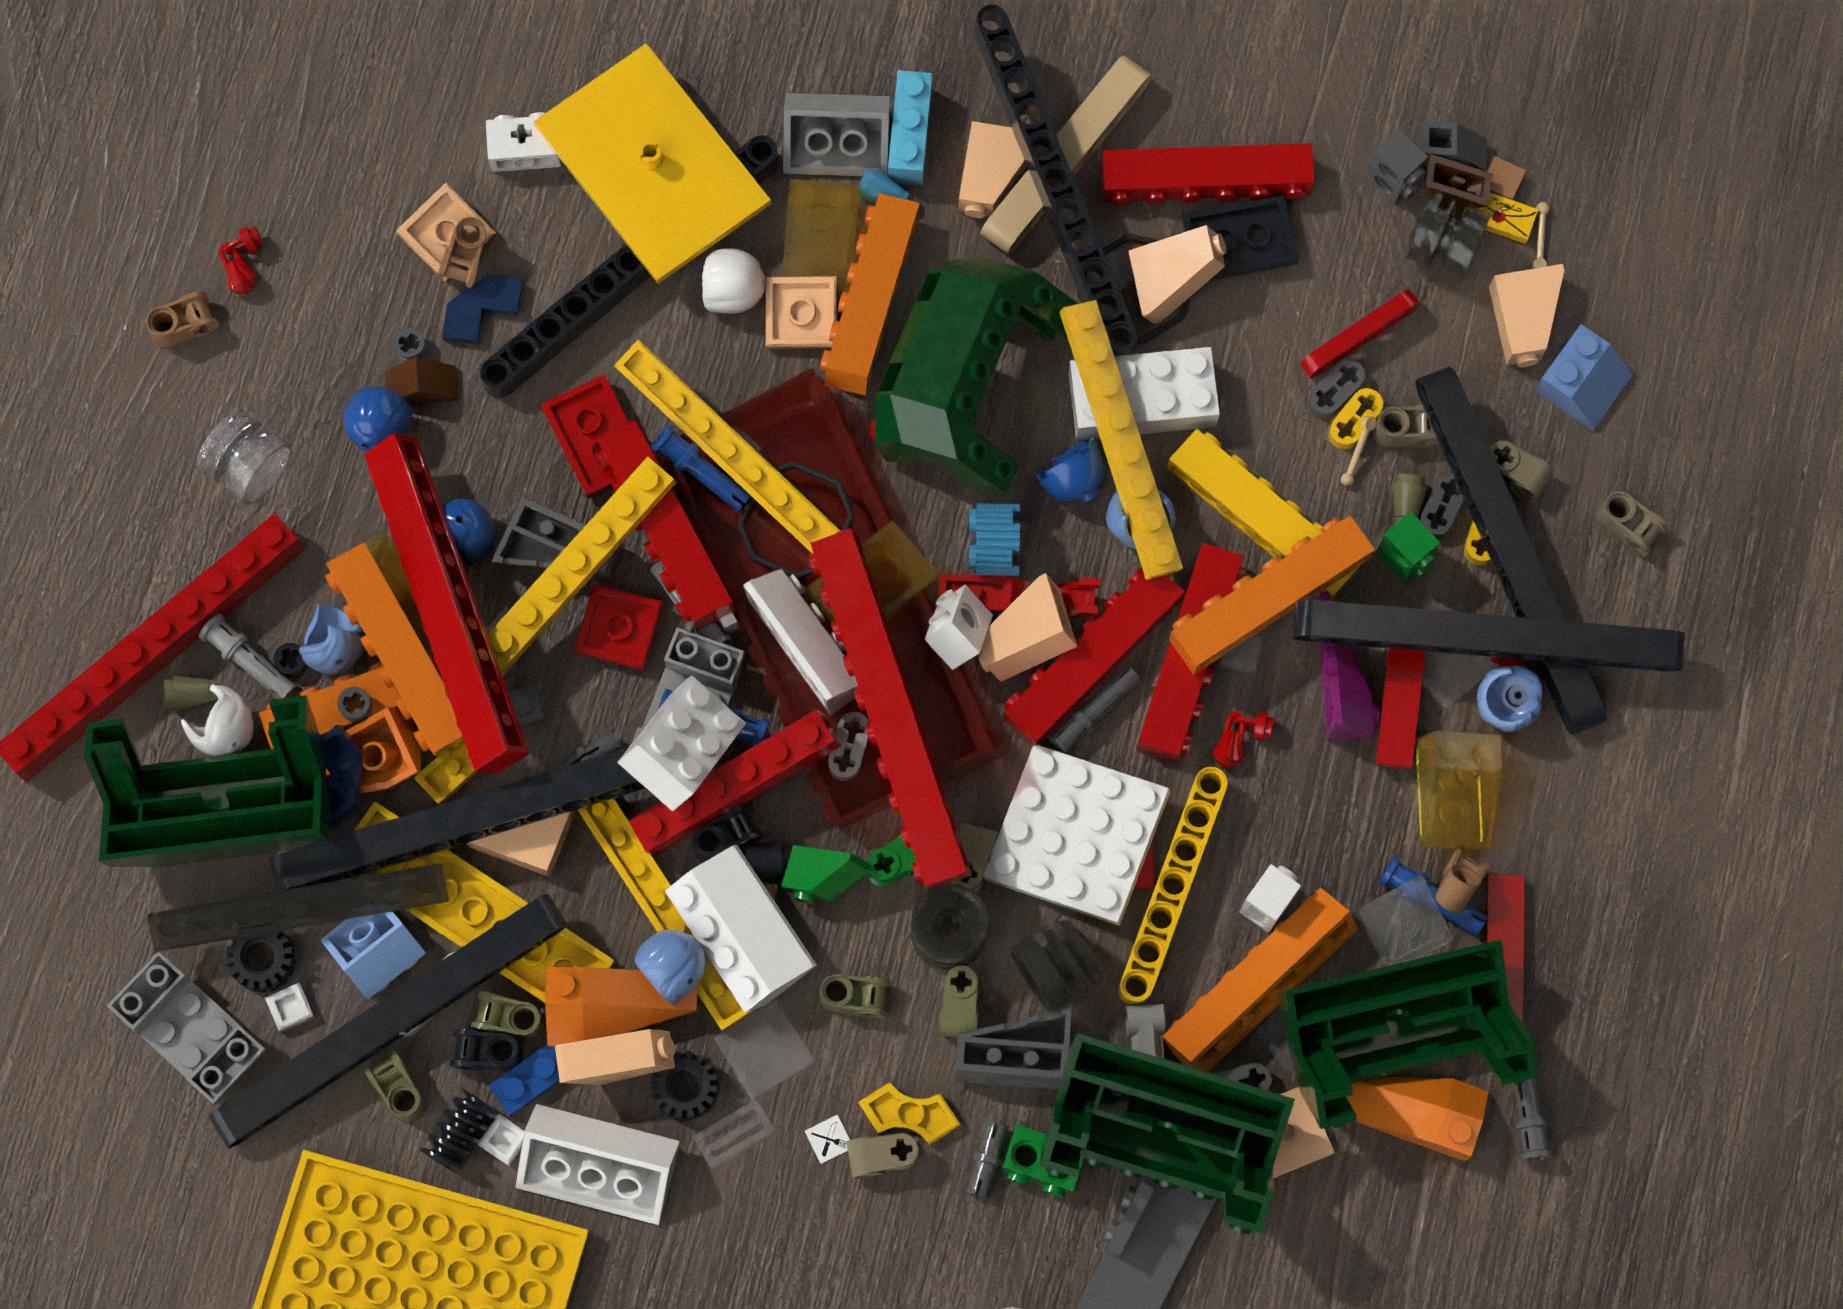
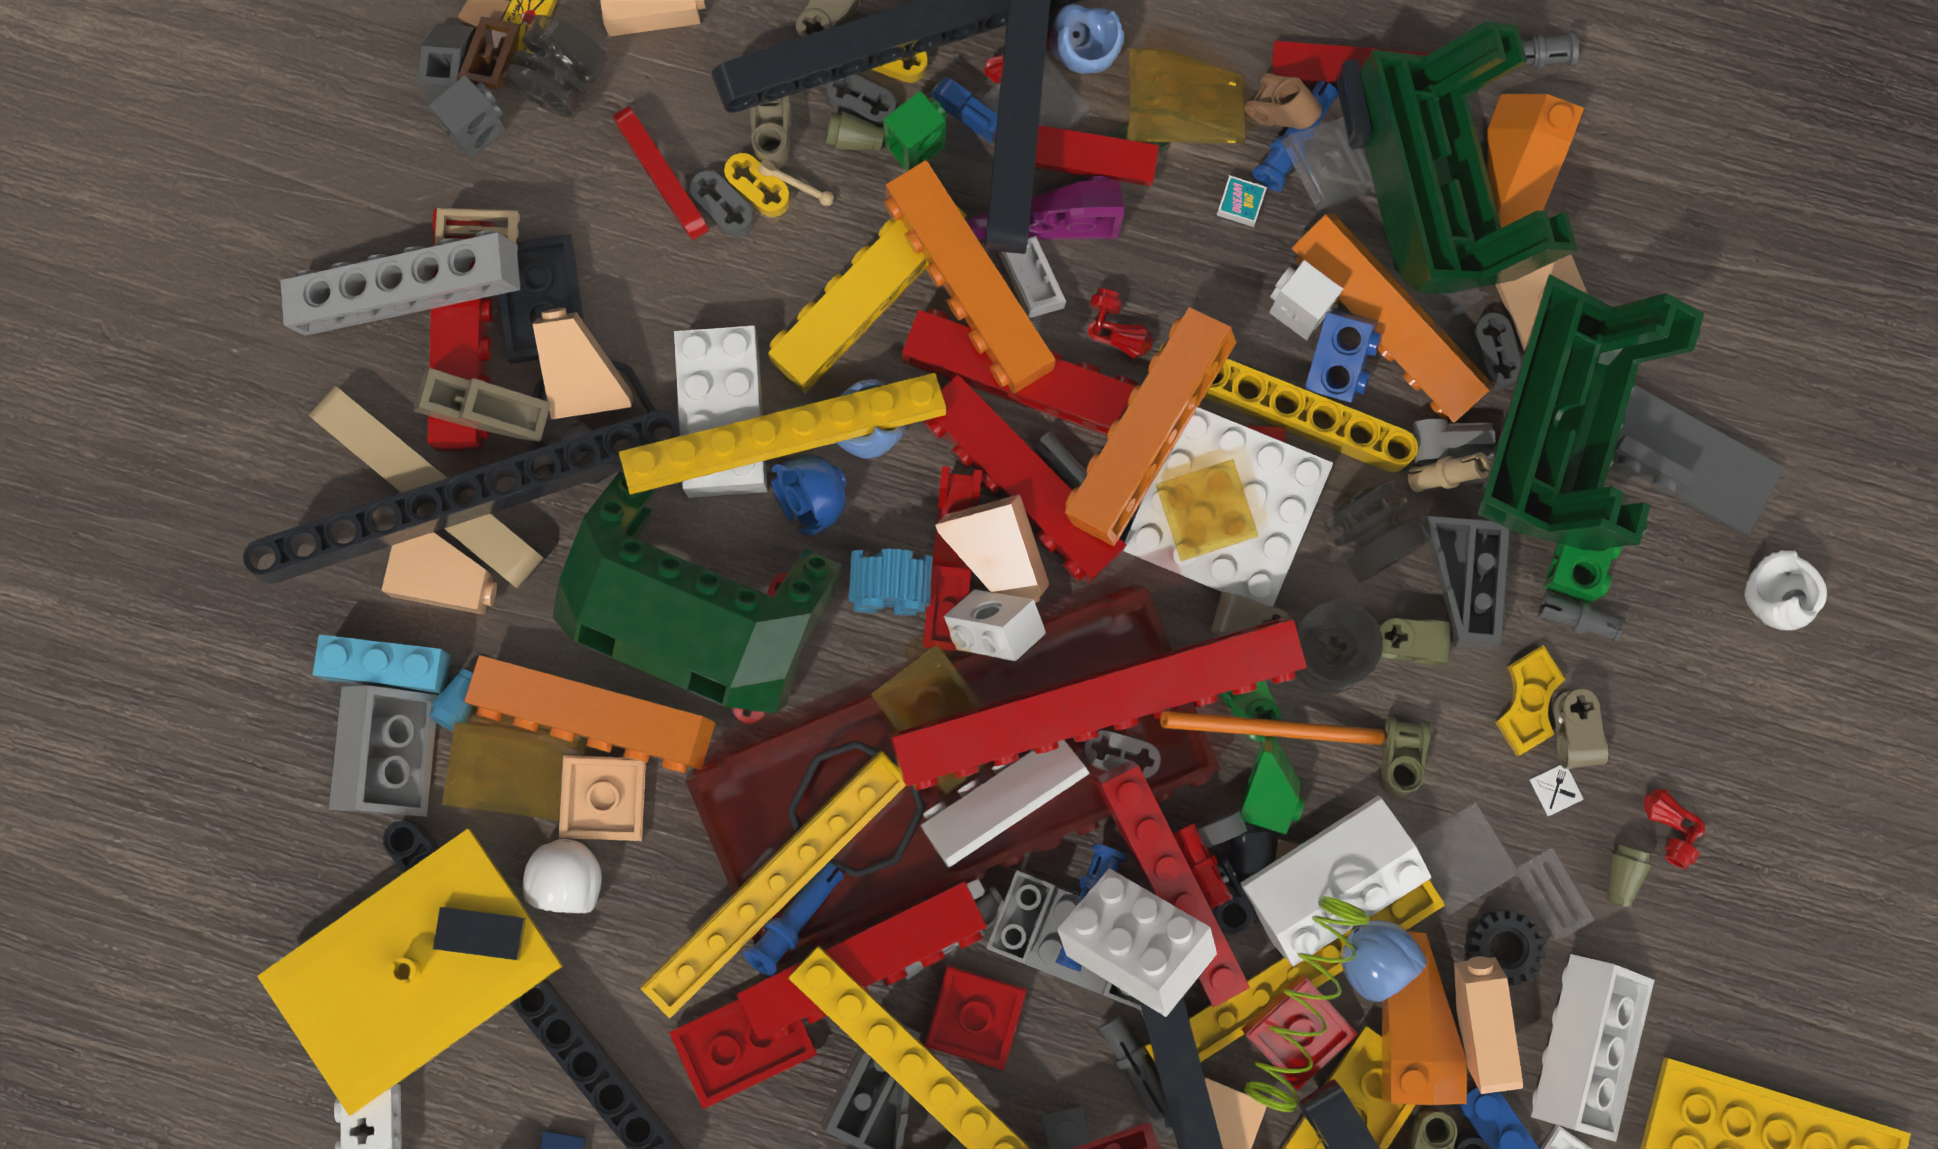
camera: 90 degrees left, 5 degrees up
(609, 902) = (1294, 1016): none -> red plate
(682, 212) = (479, 933): none -> black tile
(701, 919) = (1354, 917): none -> lime piece
(750, 807) = (1202, 866): none -> red pin
(753, 1197) = (1627, 873): none -> olive cone
(780, 820) = (1221, 829): none -> dark grey beam
(812, 1235) = (1664, 808): none -> red piece
(873, 868) = (1273, 728): none -> orange piece
(1068, 808) = (1206, 510): none -> clear yellow plate
(1114, 1026) = (1448, 472): none -> tan pin
(1134, 191) = (481, 406): none -> dark tan slope
(1141, 754) = (1150, 425): none -> orange brick
(1222, 925) = (1333, 352): none -> blue brick
(1240, 119) = (492, 274): none -> light grey brick
(1281, 660) = (1033, 280): none -> white plate
(1293, 207) = (444, 214): none -> tan tile
(1367, 848) = (1241, 201): none -> tile
(1444, 589) = (965, 108): none -> blue piece
(1458, 941) = (1353, 104): none -> black tile

